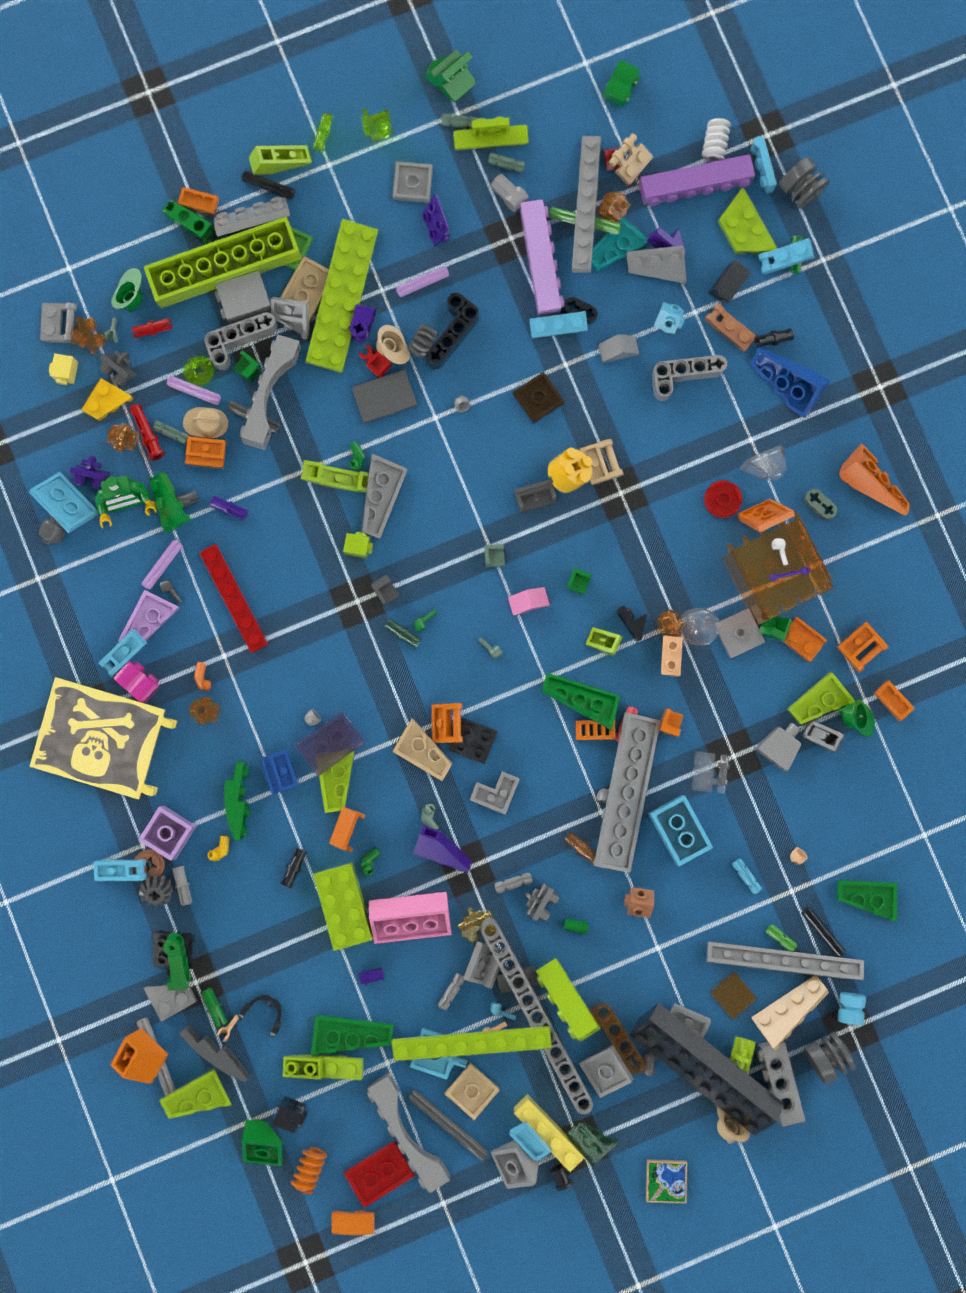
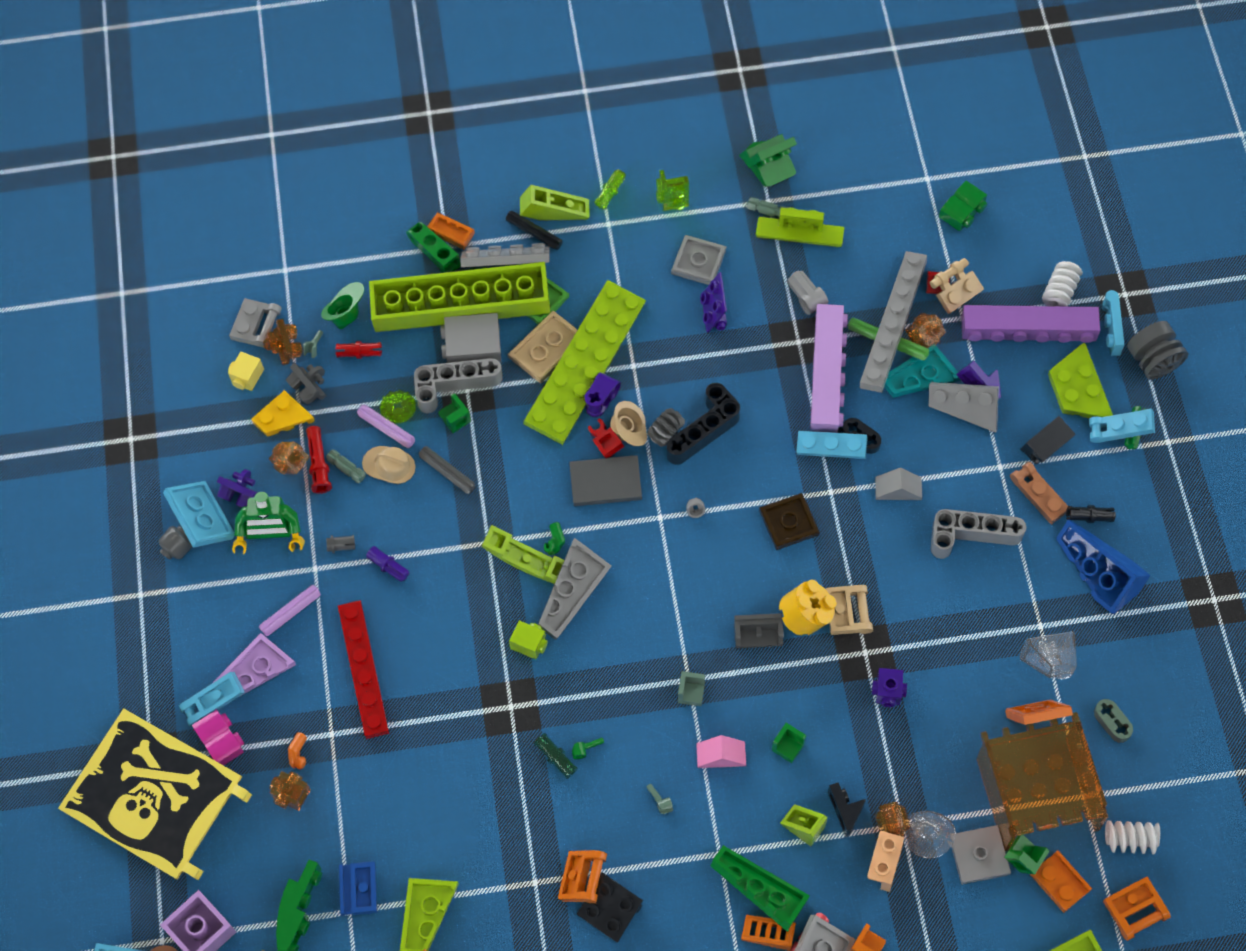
camera: 20 degrees right, 20 degrees down
(168, 506) = (317, 542): green wing -> none
(168, 586) = (288, 635): dark grey hand -> none
(205, 452) = (379, 496): orange plate -> none
(282, 358) = (499, 411): light grey arch -> none
(292, 314) = (522, 368): light grey wing -> none
(312, 717) = (417, 832): light grey hinge -> none
(330, 744) = (429, 867): clear purple tile -> none
(385, 590) = (547, 699): dark grey panel -> none
(422, 281) = (683, 365): lavender axle -> none
(422, 751) = (541, 905): tan wing -> none
(506, 162) = (811, 261): sand green axle -> none
(646, 512) = (889, 687): none -> dark purple brick
(670, 318) = (966, 464): medium azure brick -> none
(723, 499) = (991, 687): red tile -> none
(773, 577) = (1073, 784): dark purple hinge -> none
(779, 544) = (1046, 744): white hand -> none
(851, 593) = (1132, 836): none -> white piece
(865, 476) = (1175, 696): orange wedge -> none

